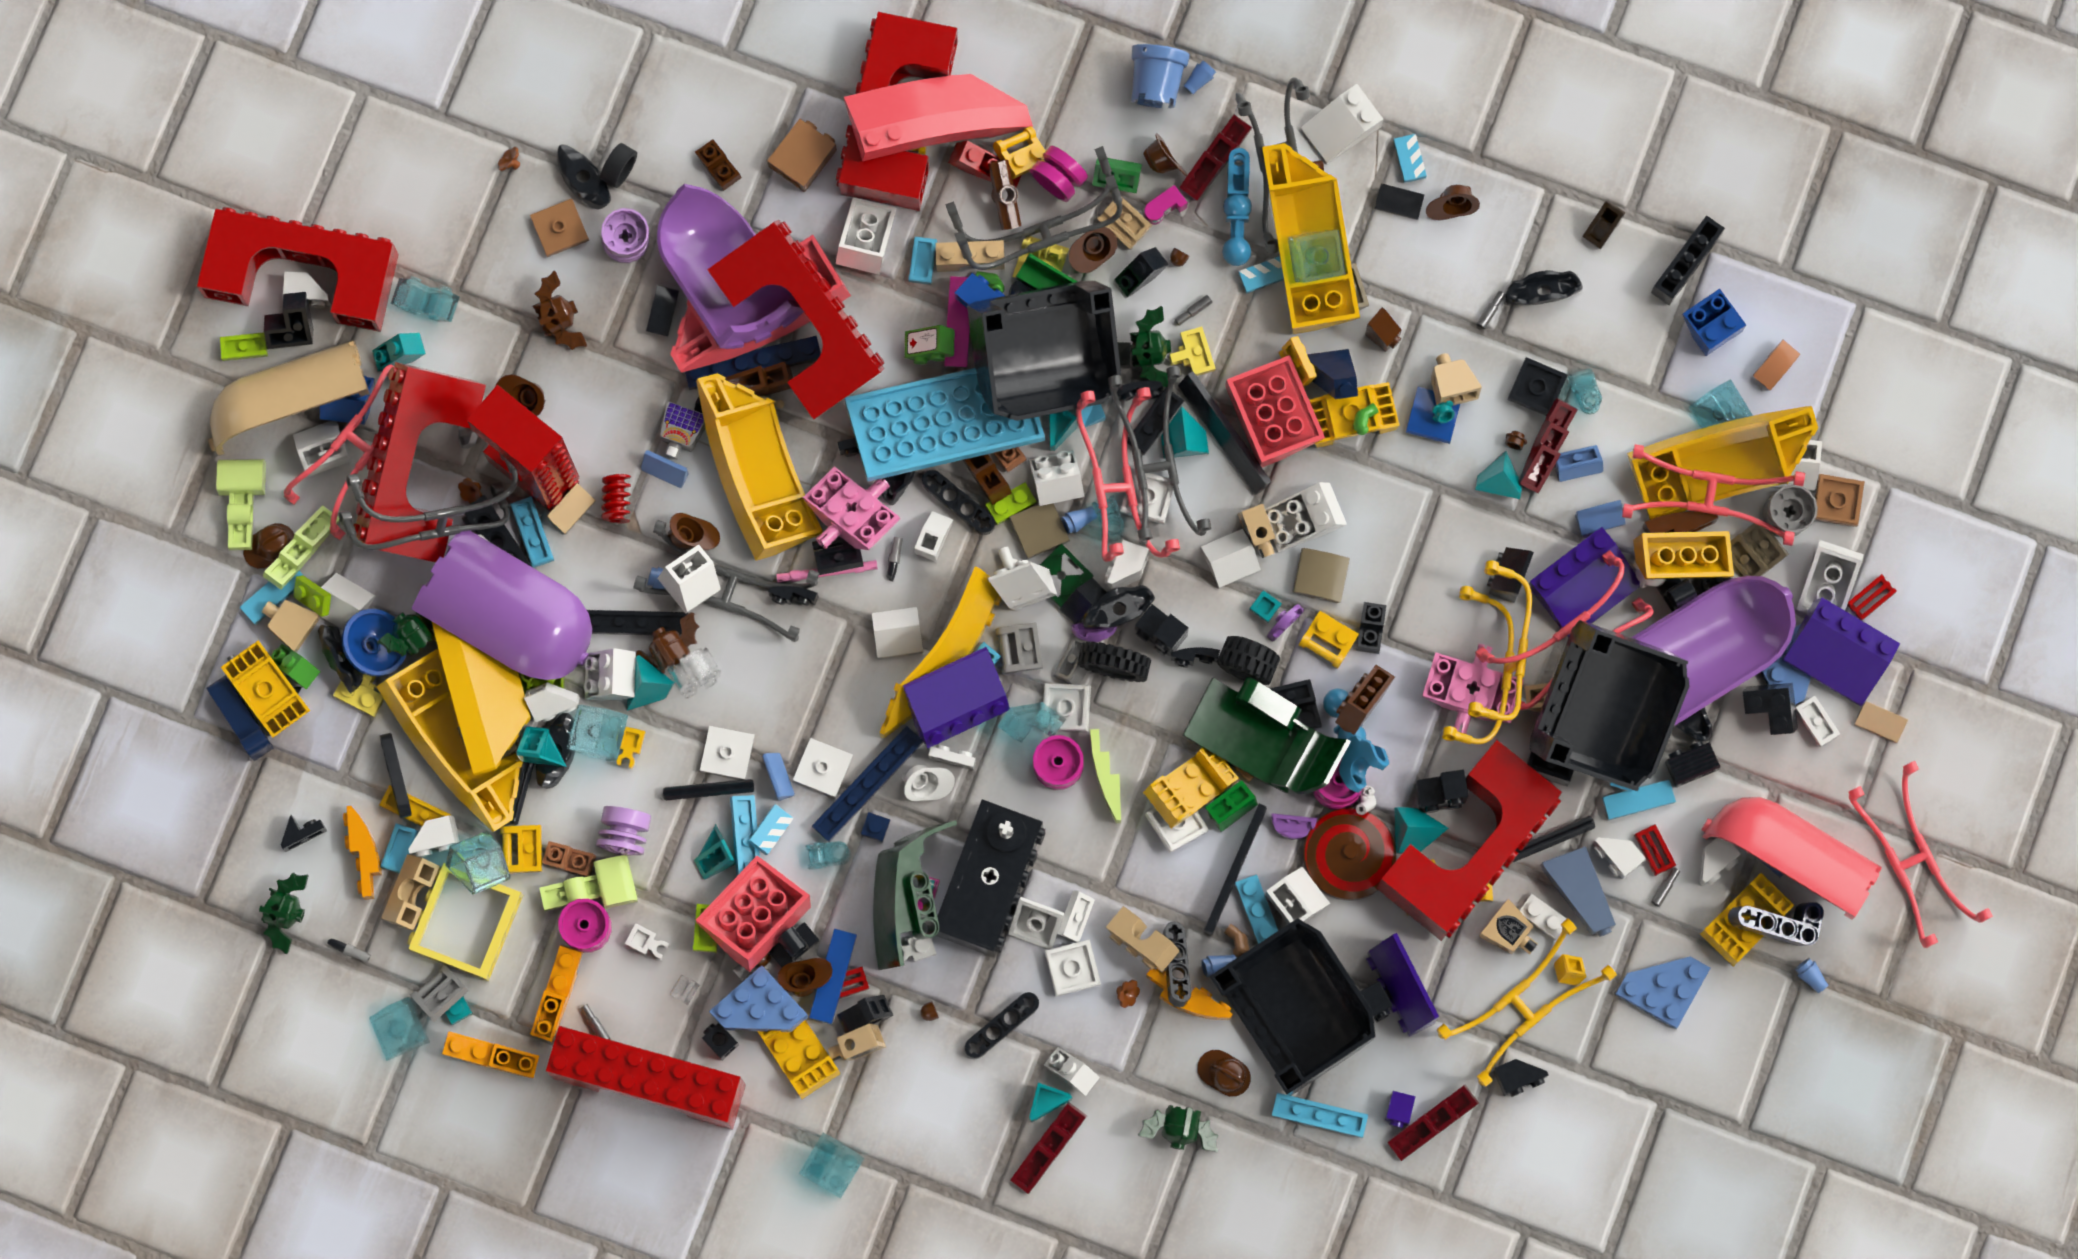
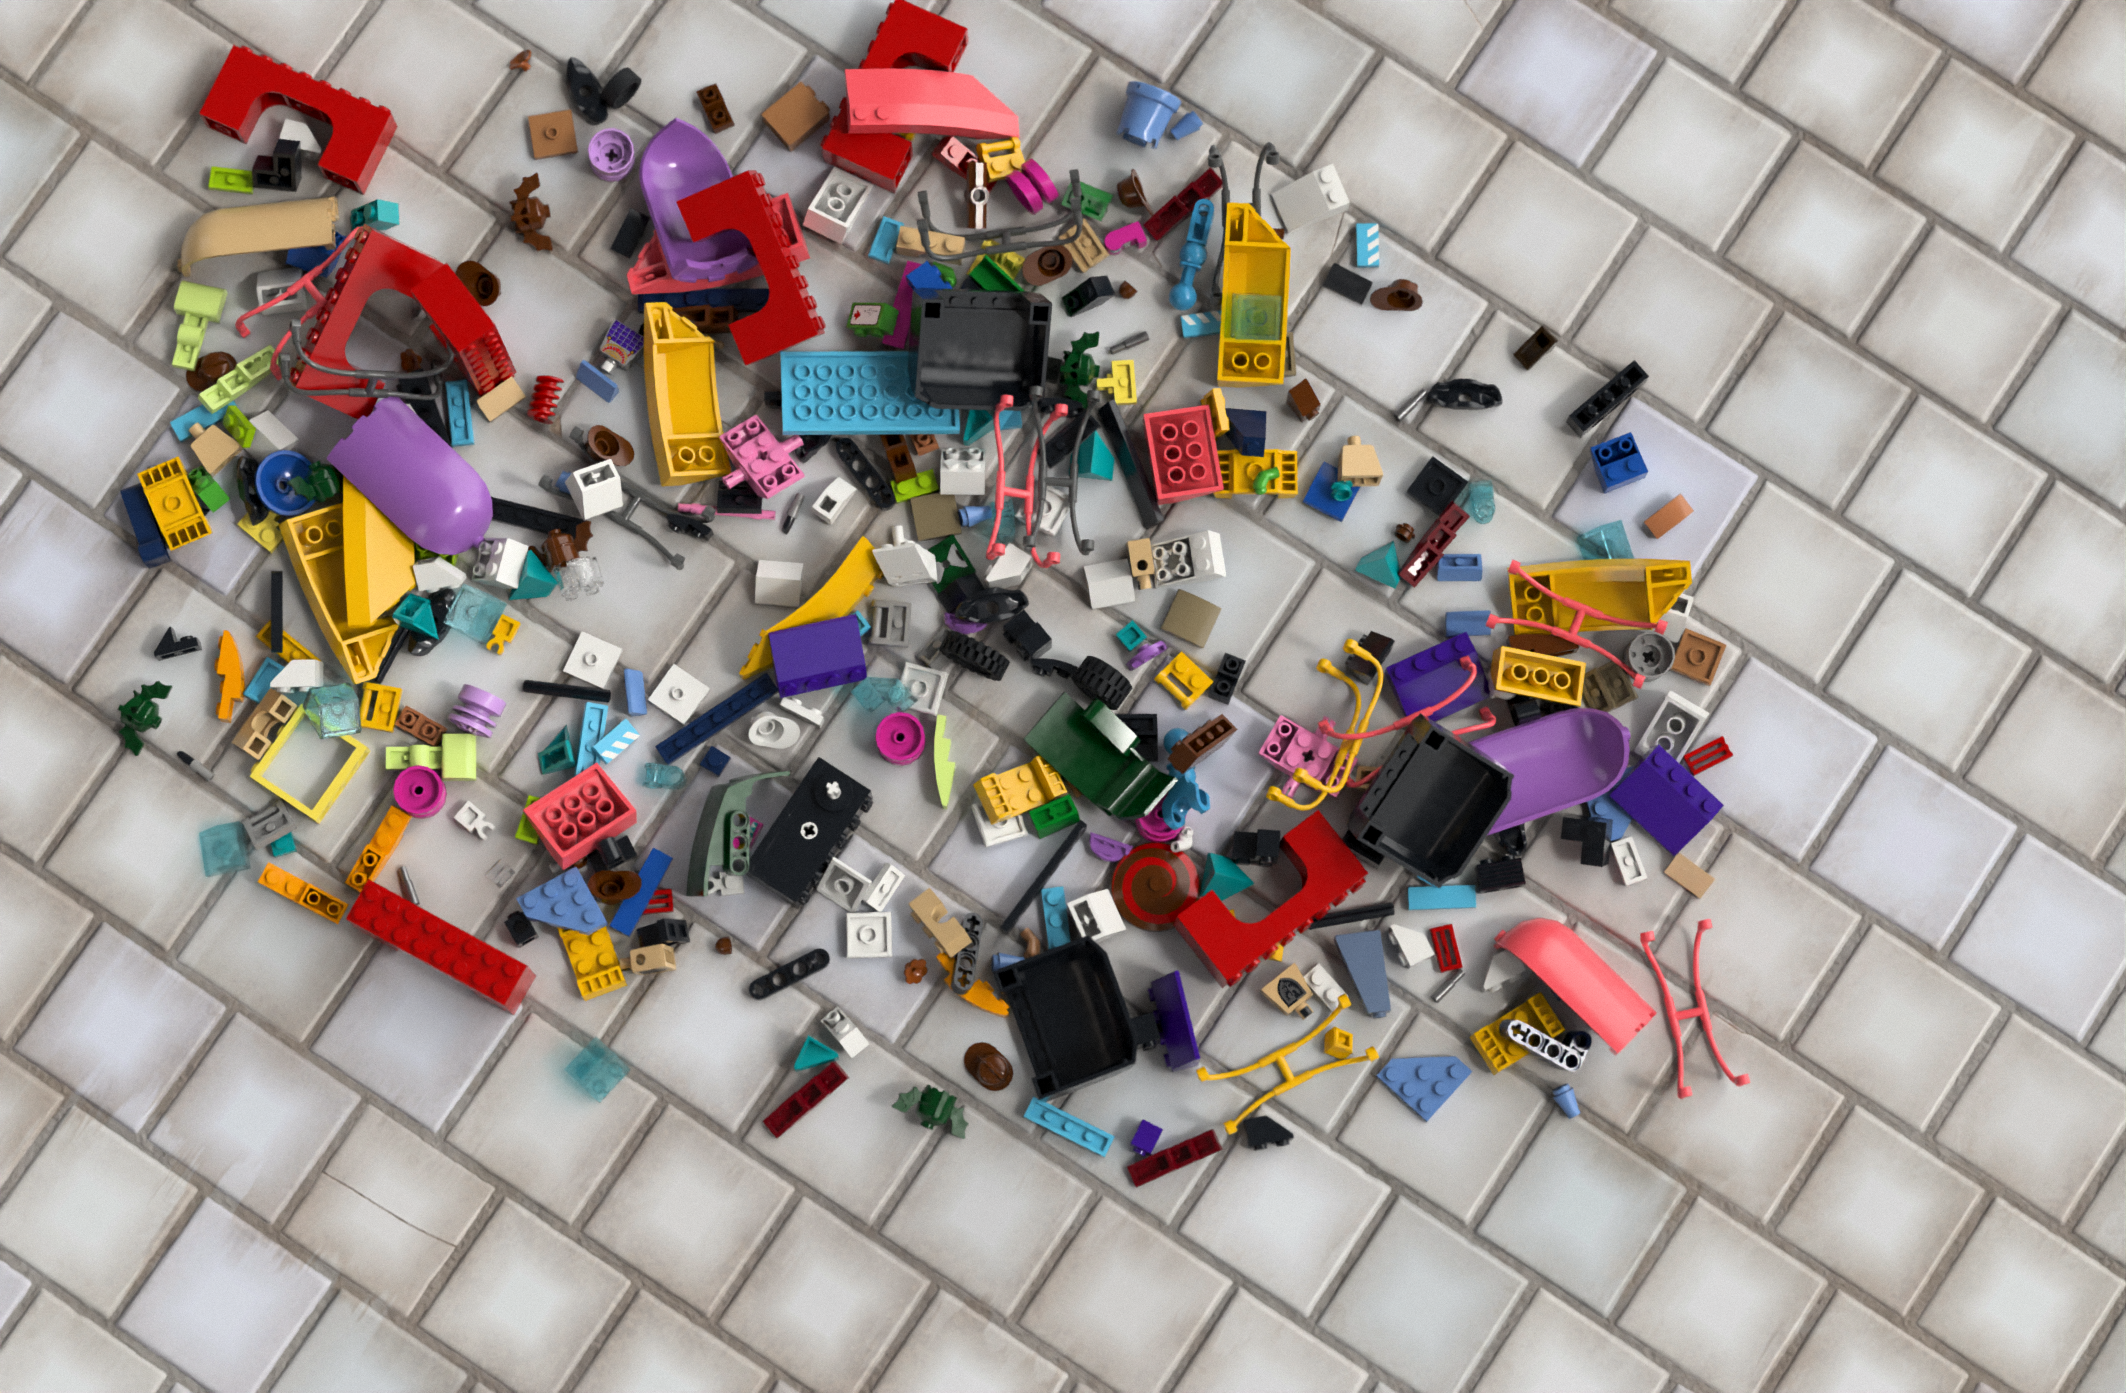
camera: 10 degrees right, 0 degrees up
(417, 297) = (404, 171): clear light blue brick -> none

